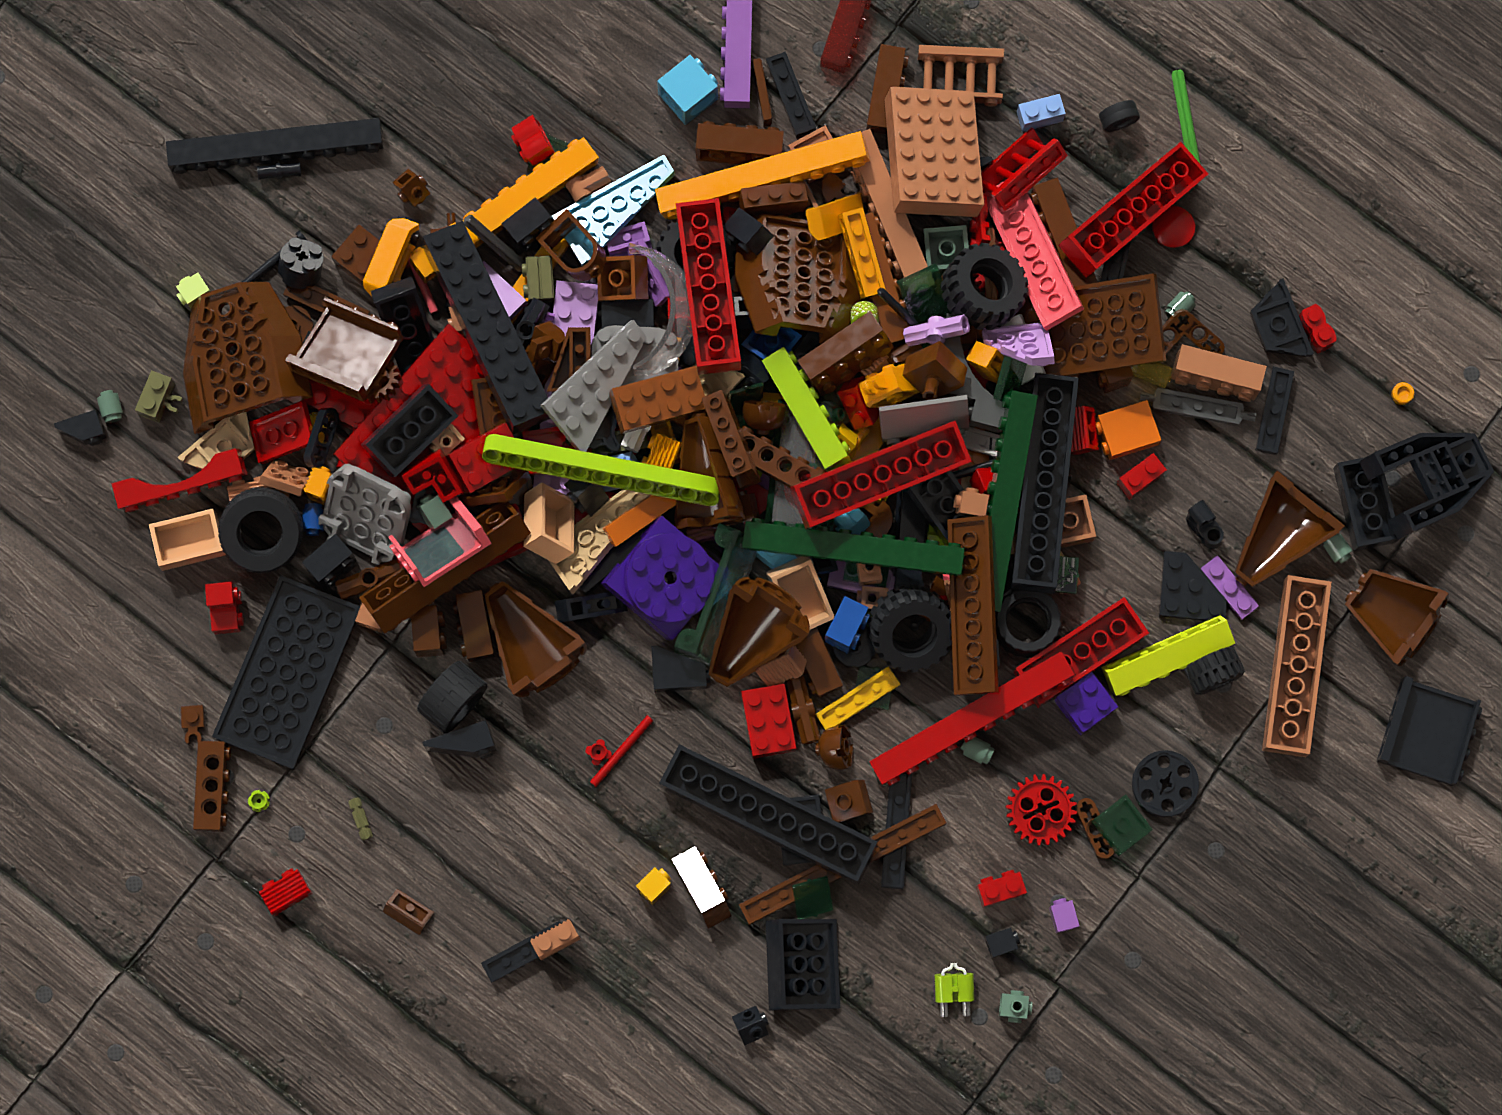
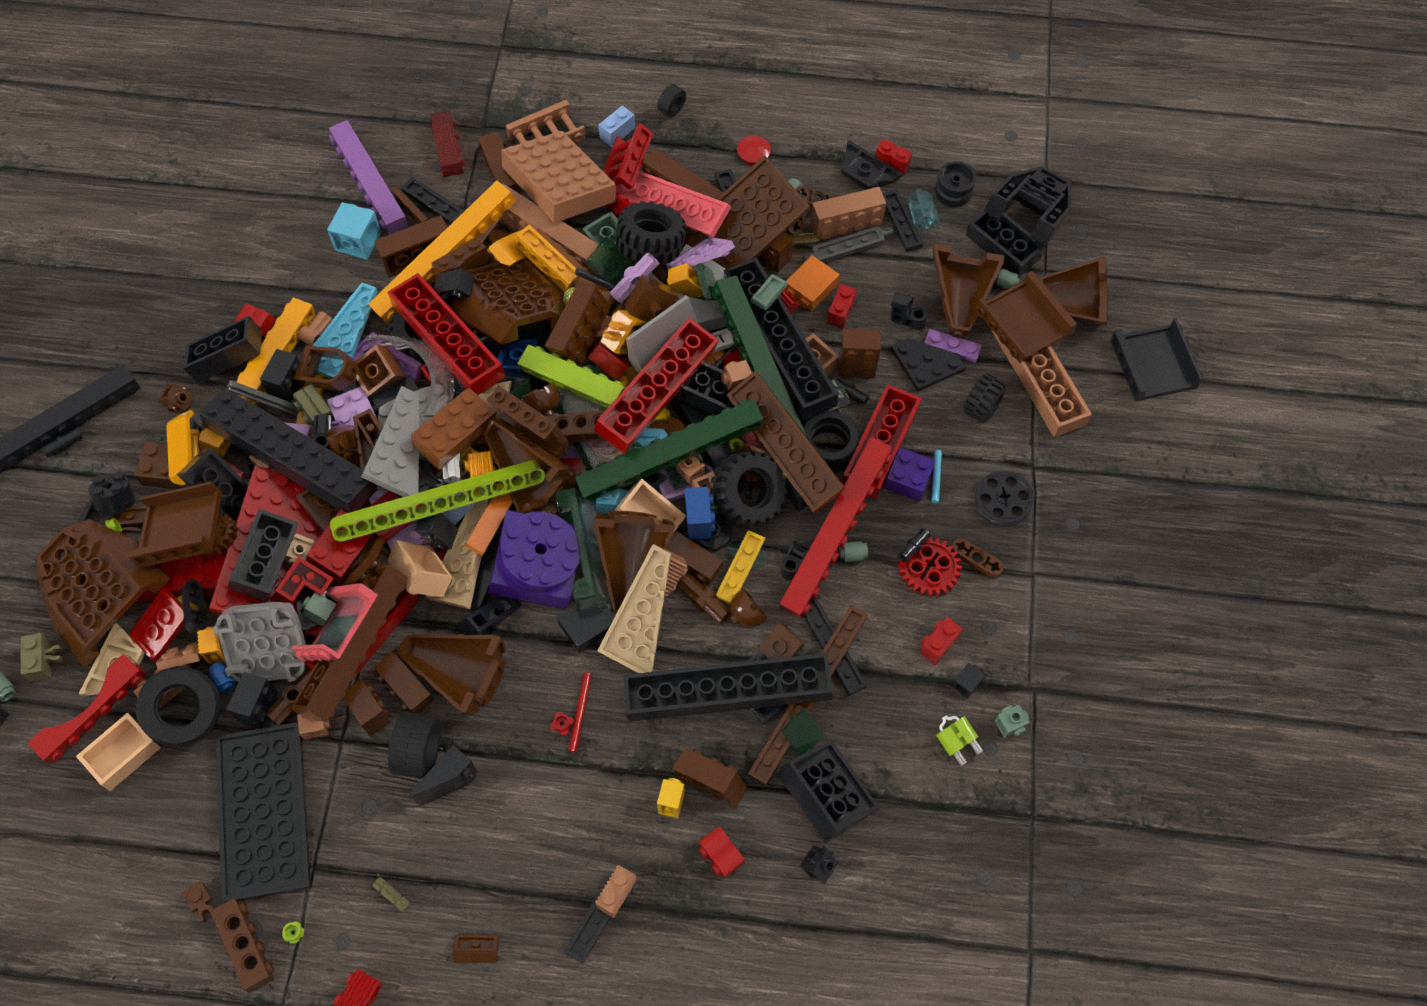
camera: 30 degrees left, 15 degrees down
(191, 289) = (26, 562): yellowish green brick -> none
(224, 602) = (177, 786): red brick -> none
(287, 300) = (114, 525): none -> lime plate
(483, 162) = (223, 349): none -> black brick
(670, 961) = (721, 853): none -> red brick
(720, 702) = (637, 623): none -> tan wing
(768, 721) = (685, 622): red brick -> none
(916, 721) = (793, 559): none -> black piece
(1036, 782) = (914, 545): none -> black pin
(1063, 429) = (769, 292): none -> sand green tile
(1063, 915) = (1000, 632): medium lavender brick -> none
(1088, 578) = (854, 393): none -> black pin
(1098, 740) = (936, 476): none -> medium azure bar
(1117, 547) = (859, 353): none -> reddish brown brick
(1122, 825) = (995, 543): clear green tile -> none
(1133, 209) = (720, 143): red brick -> none
(1167, 656) = (943, 410): neon yellow brick -> none
(1184, 112) = (718, 86): bright green axle -> none
(1304, 413) = (922, 209): none -> clear light blue brick
(1315, 610) = (1027, 318): none -> reddish brown panel
(1350, 400) = (955, 183): none -> black wheel
(1402, 393) = (979, 167): light orange tile -> none

